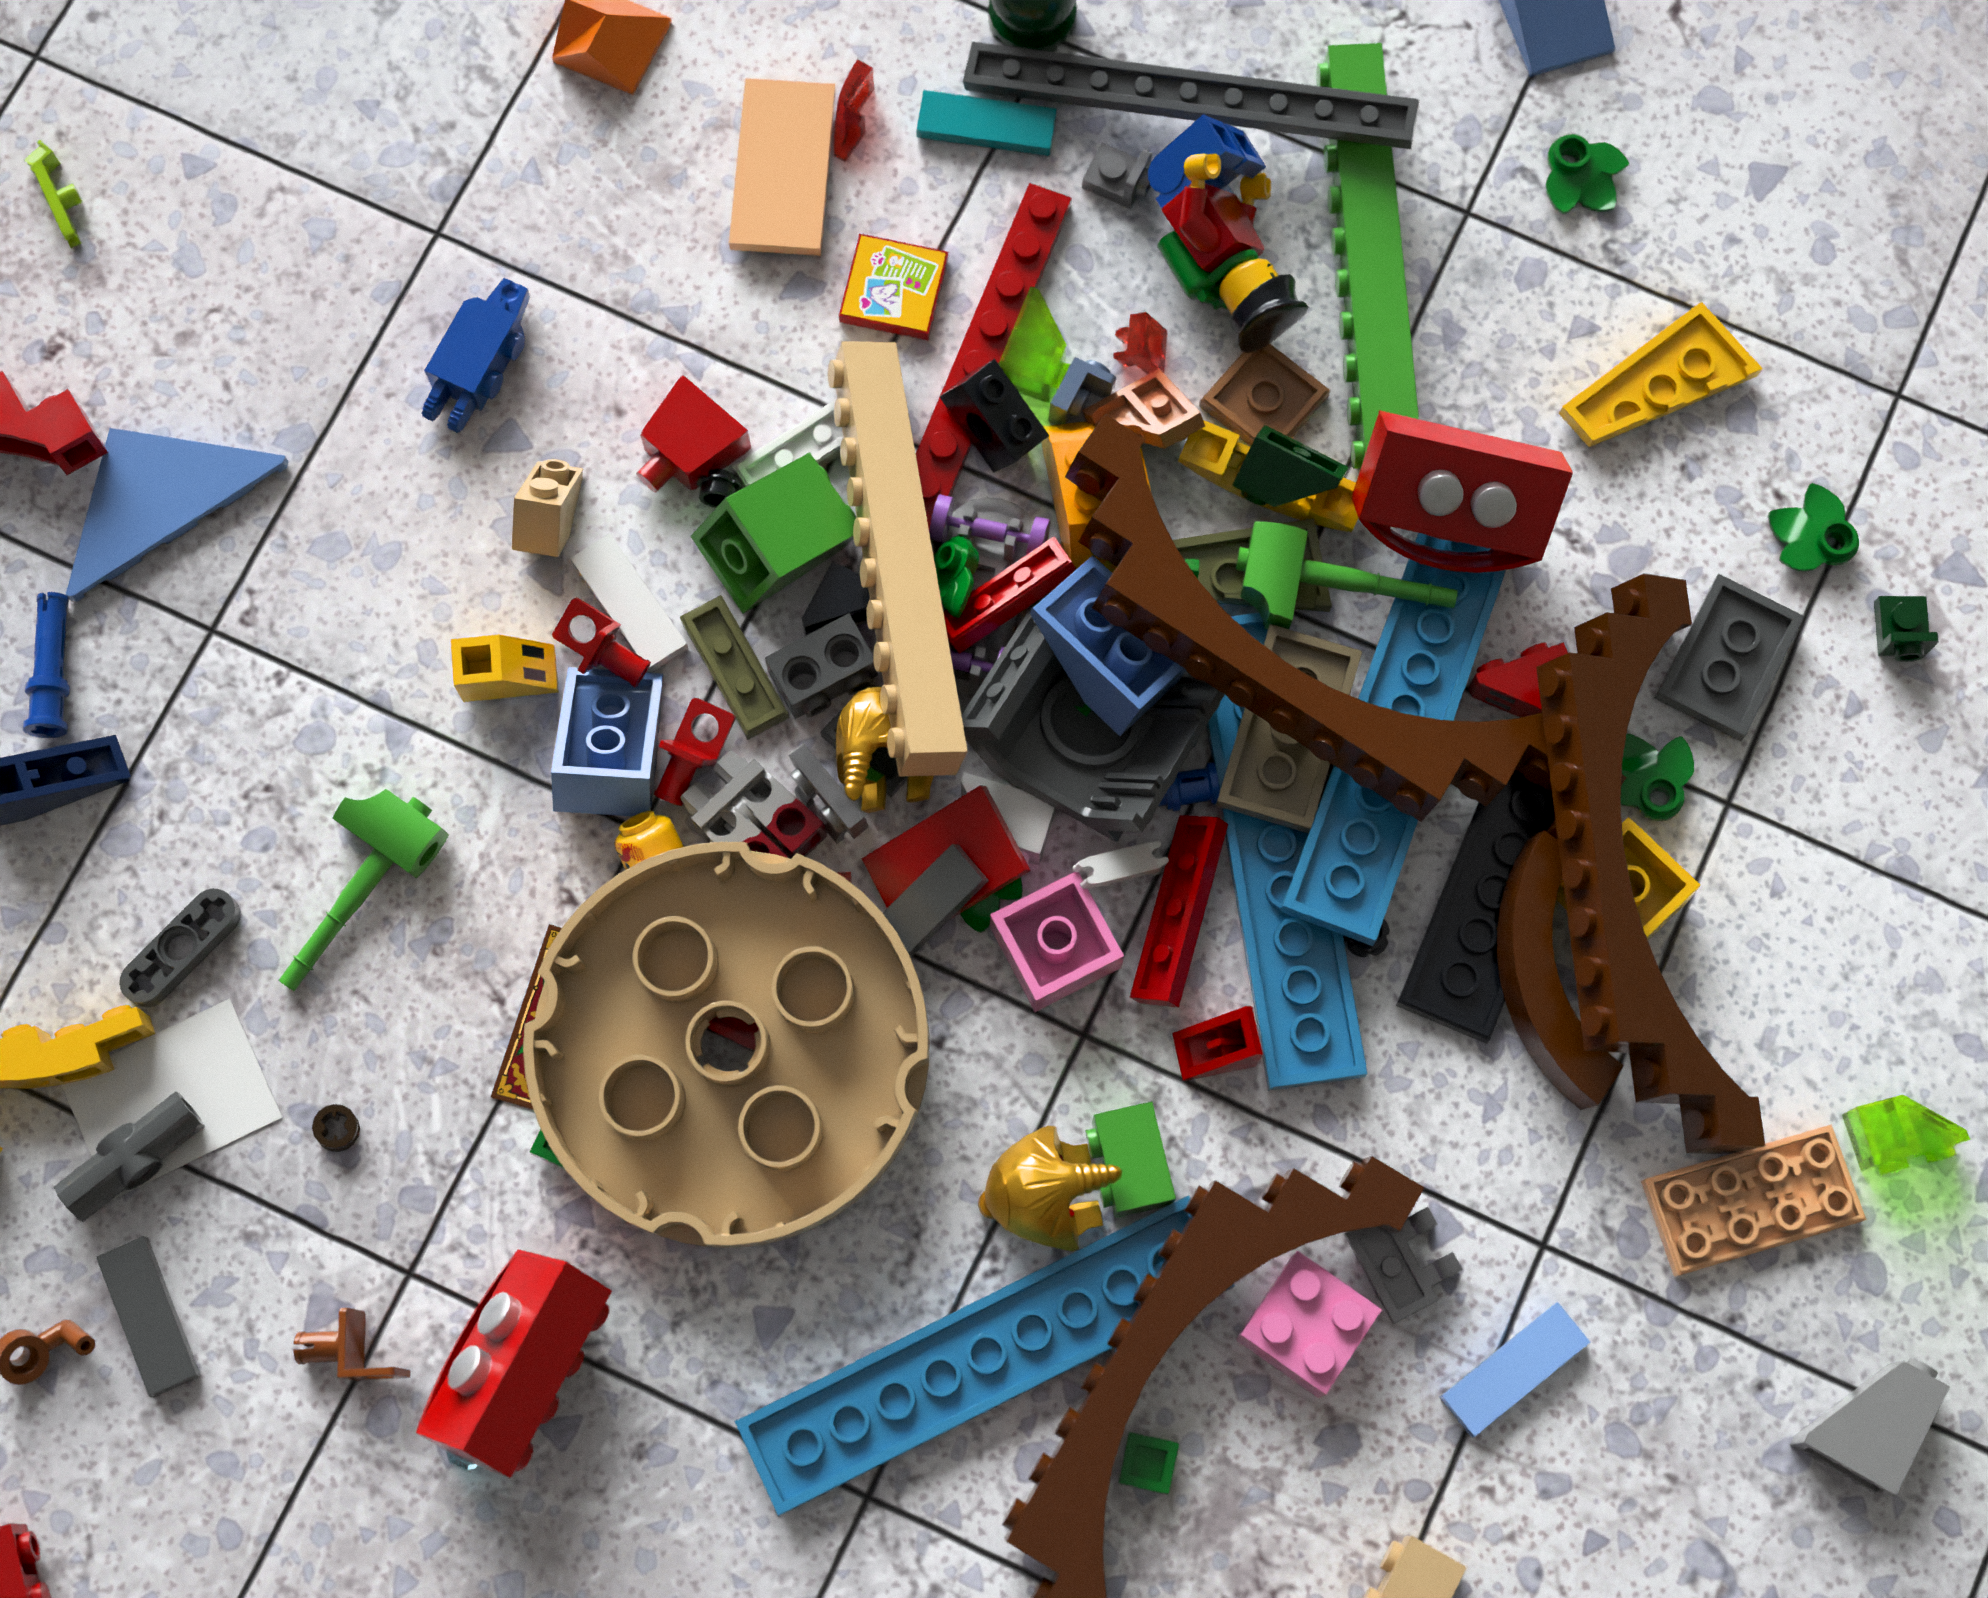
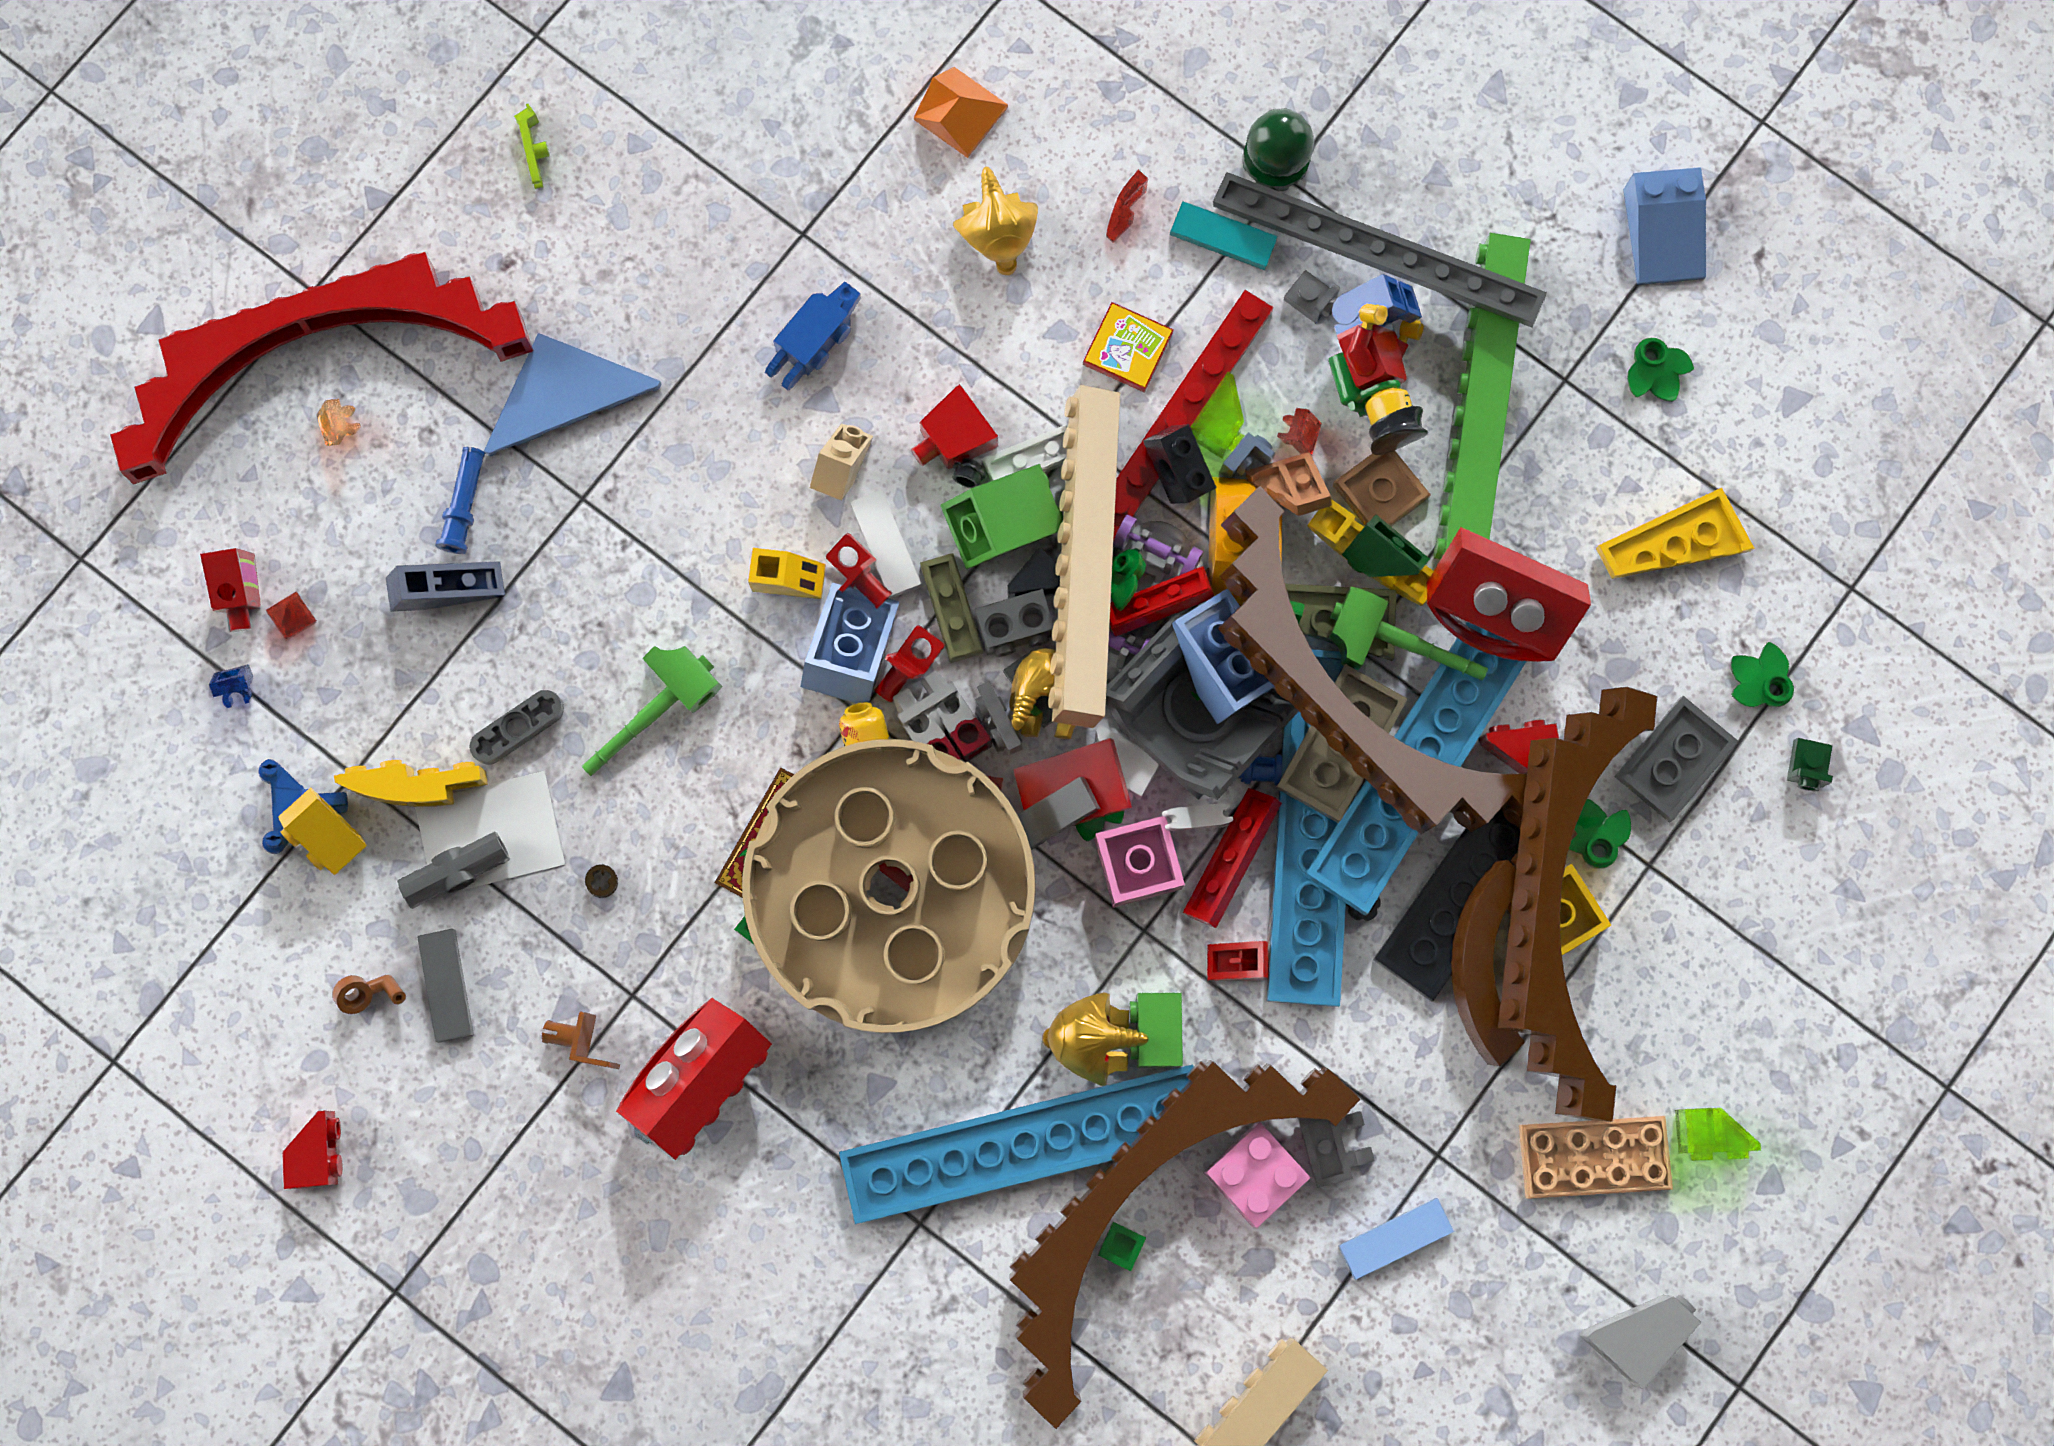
camera: 10 degrees right, 5 degrees up
(691, 165) = (999, 225): none -> pearl gold piece
(782, 167) = (1066, 238): light nougat tile -> none

